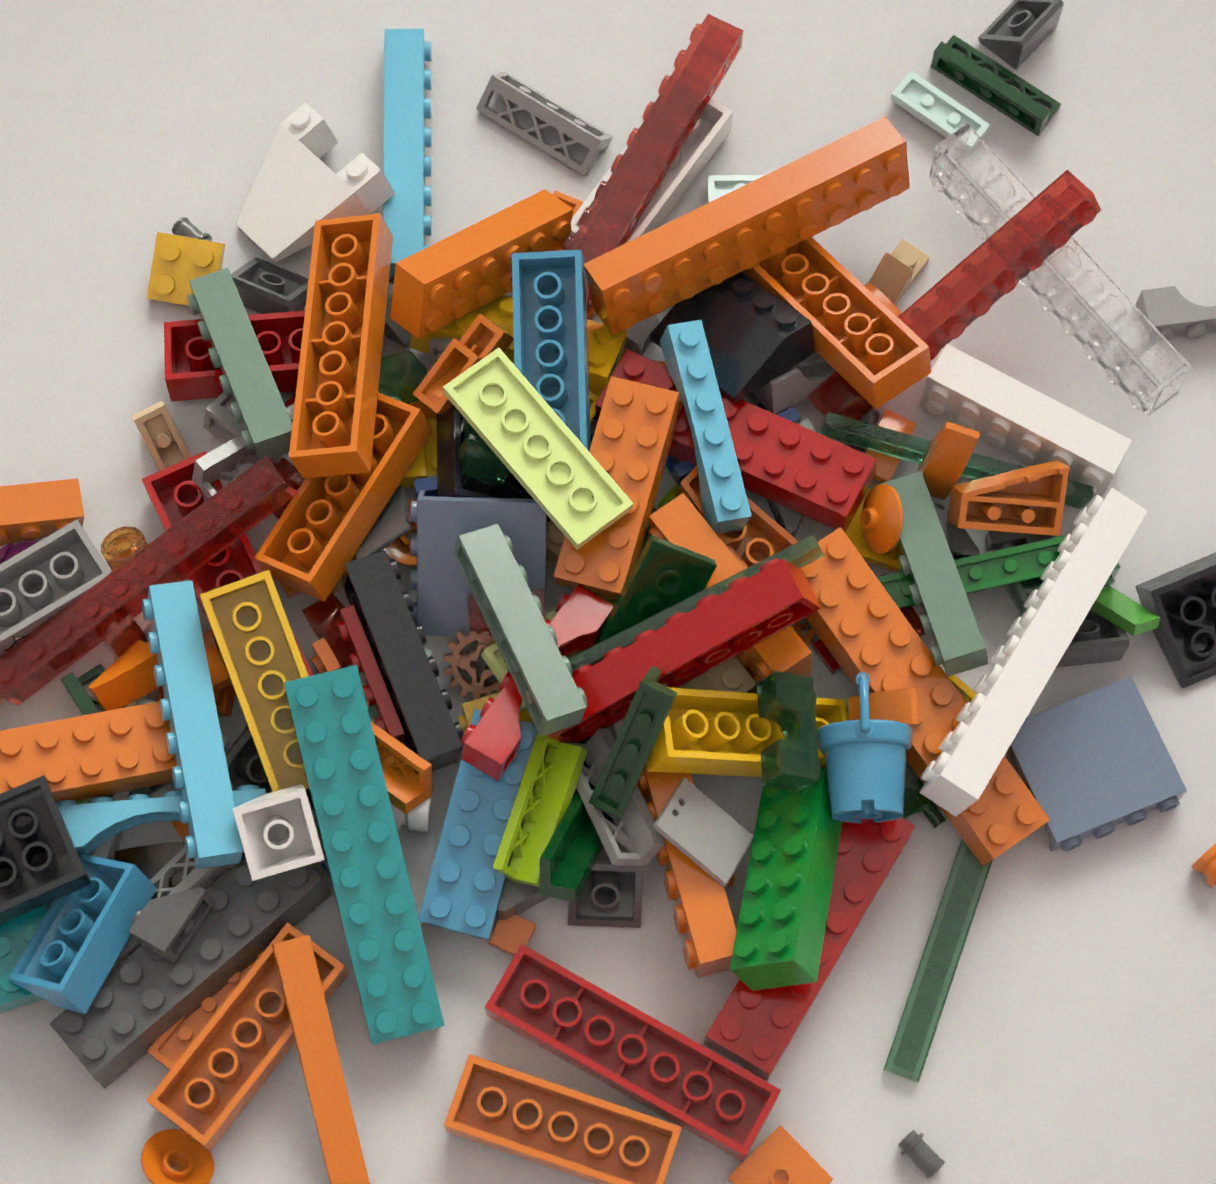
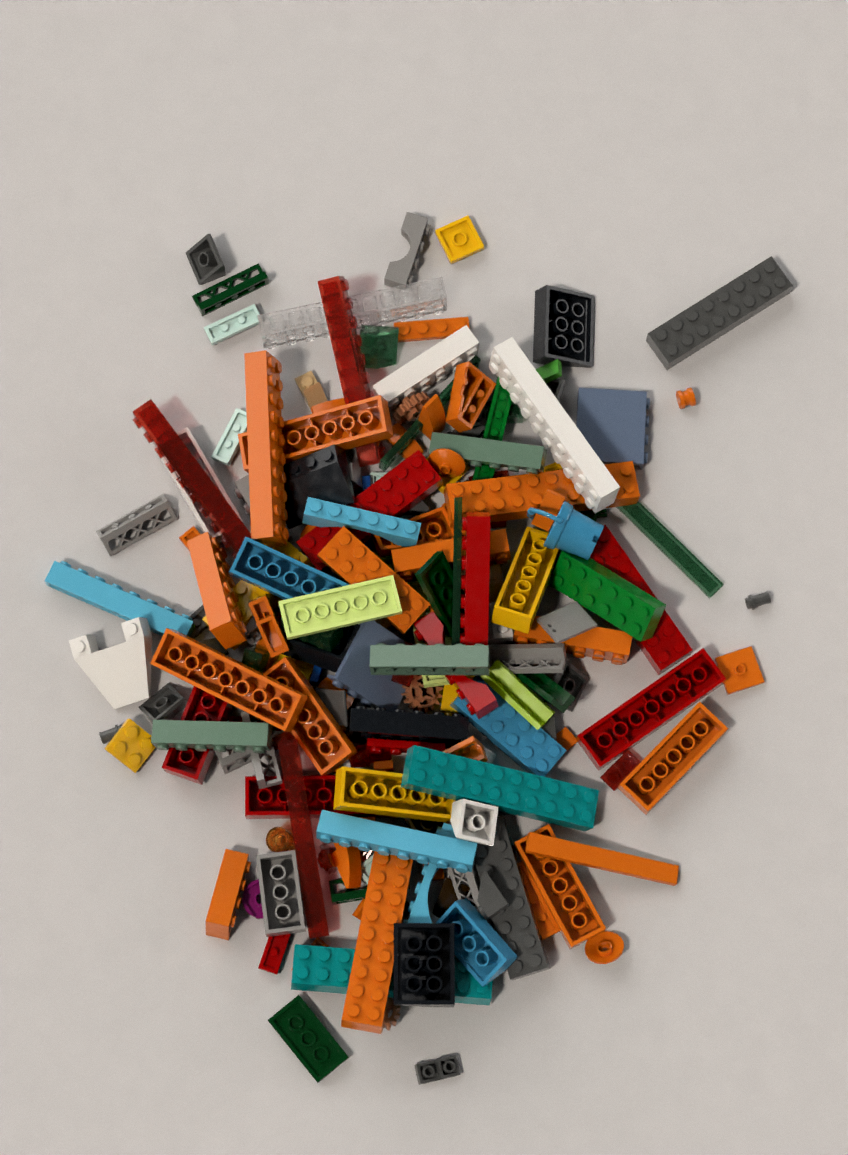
camera: 65 degrees left, 5 degrees up
(160, 436) = (222, 798): tan slope -> none
(505, 1049) = (620, 770): none -> clear red slope
(633, 745) = (513, 633): dark green fence -> none
(791, 704) = (526, 550): clear green arch -> none
(932, 416) = (410, 408): none -> nougat gear
(1022, 331) = (379, 345): none -> clear green slope
(1099, 401) = (429, 329): none -> orange plate

